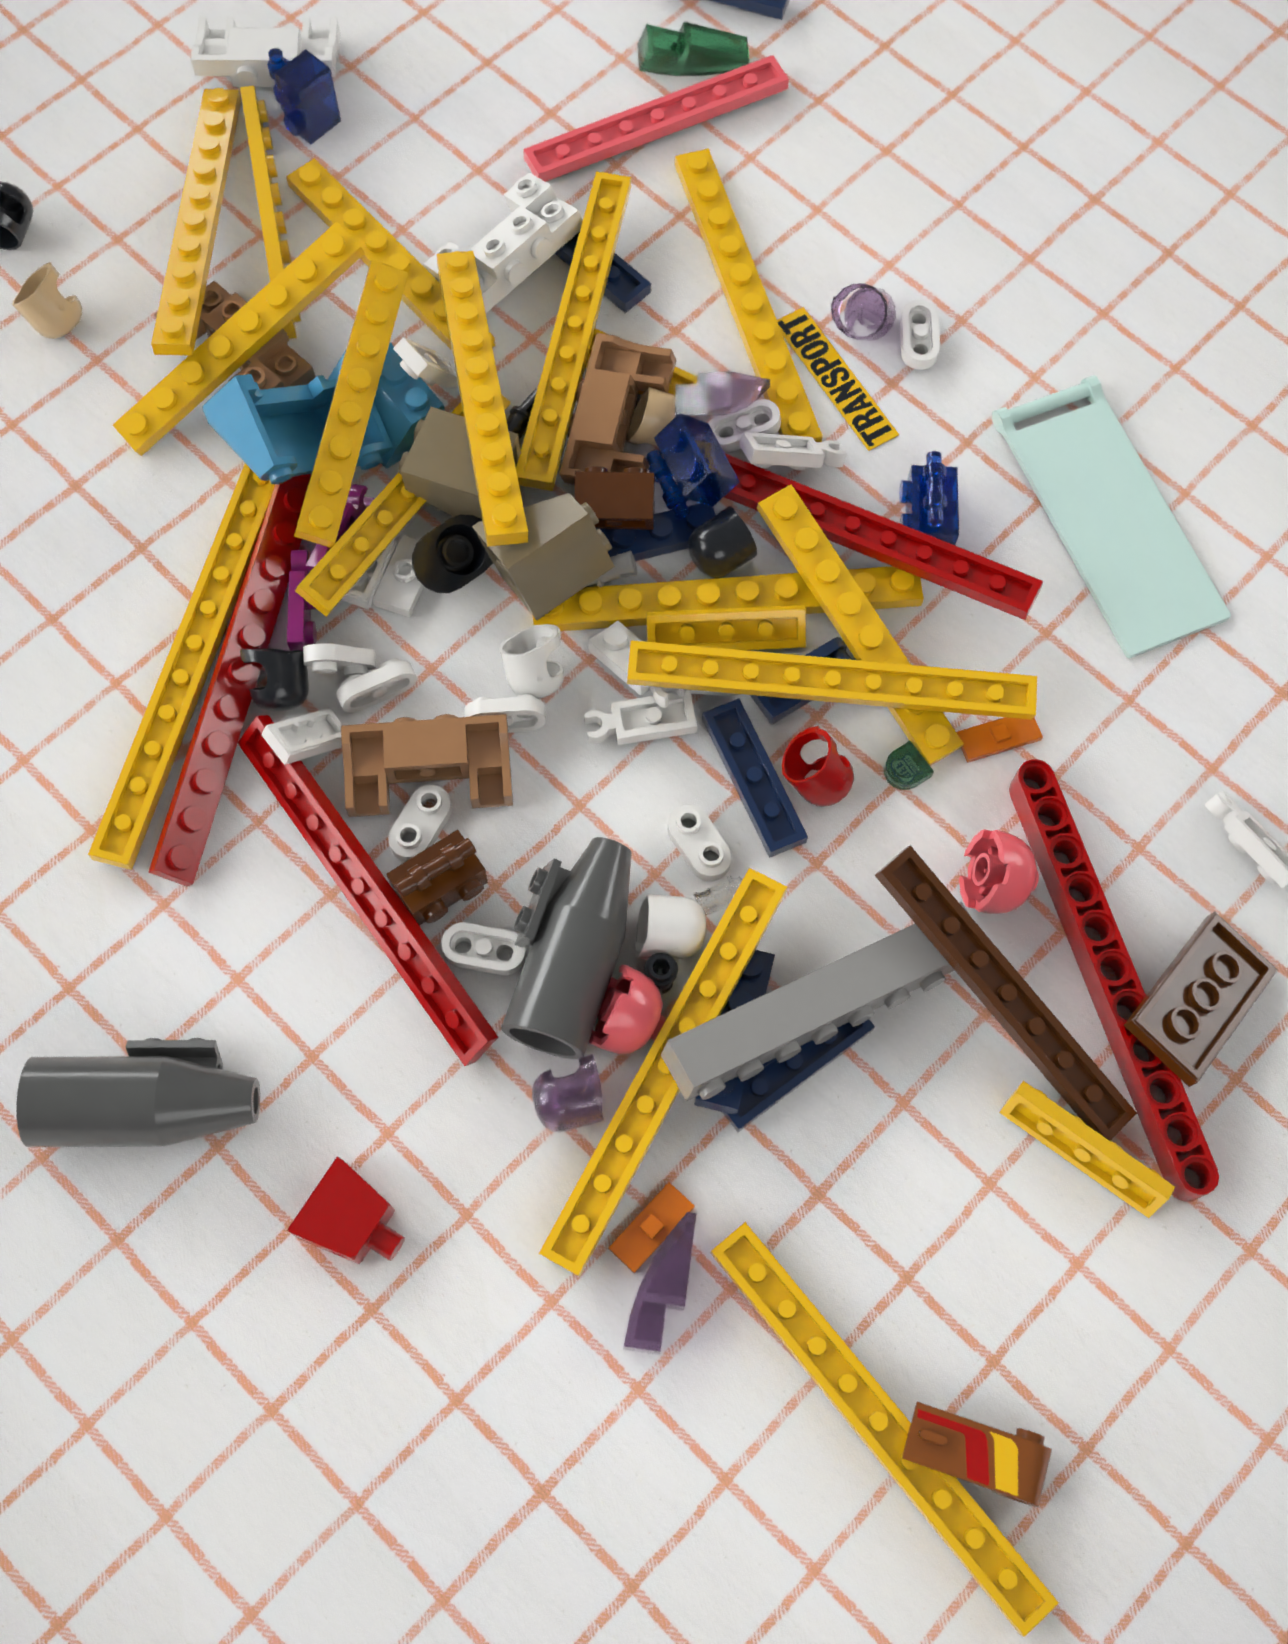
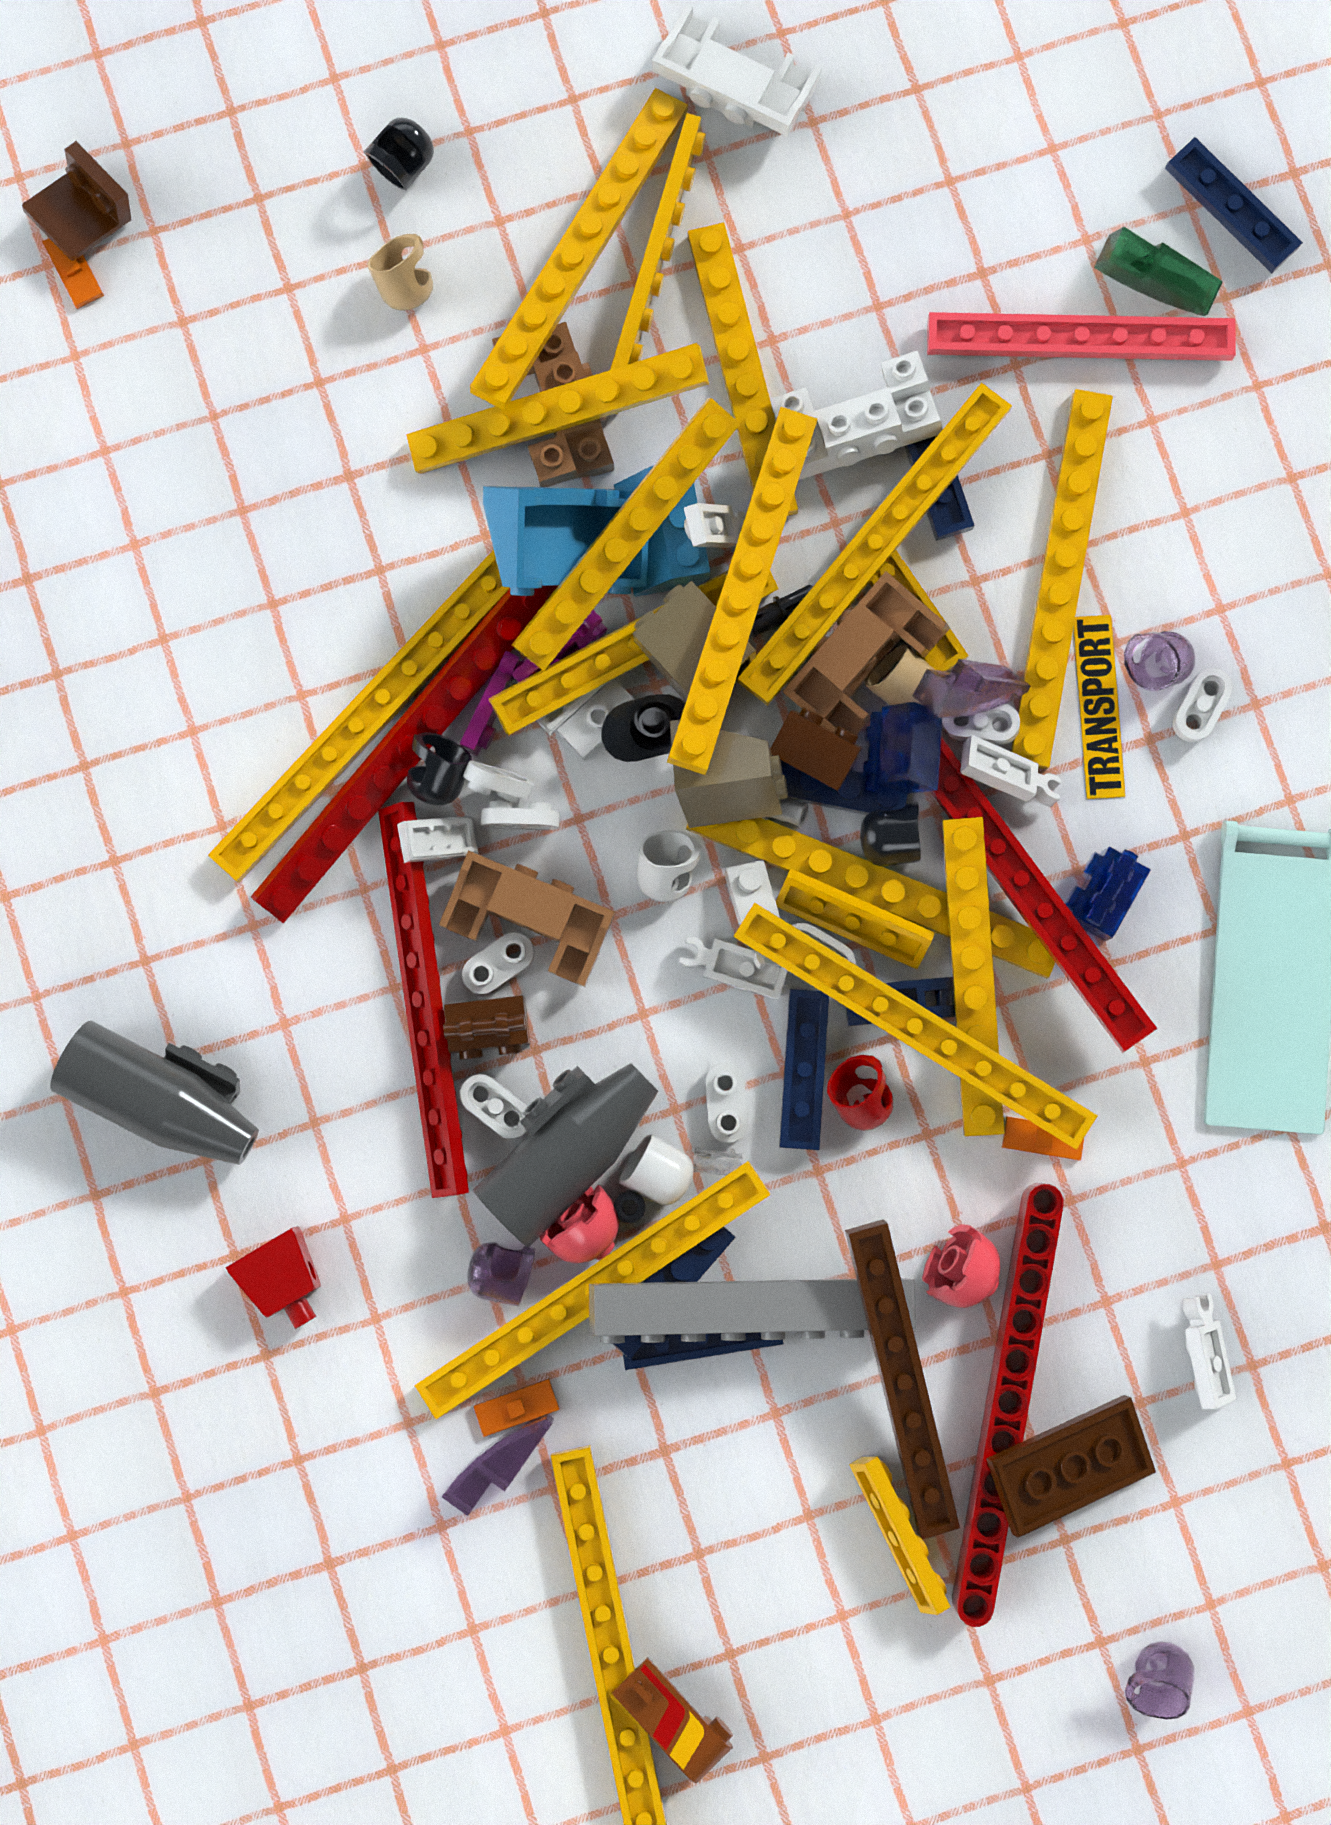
camera: 30 degrees right, 15 degrees up
(305, 94) = (744, 151): clear blue brick -> none
(523, 712) = (633, 907): white plate -> none
(906, 768) = (943, 1126): clear green tile -> none

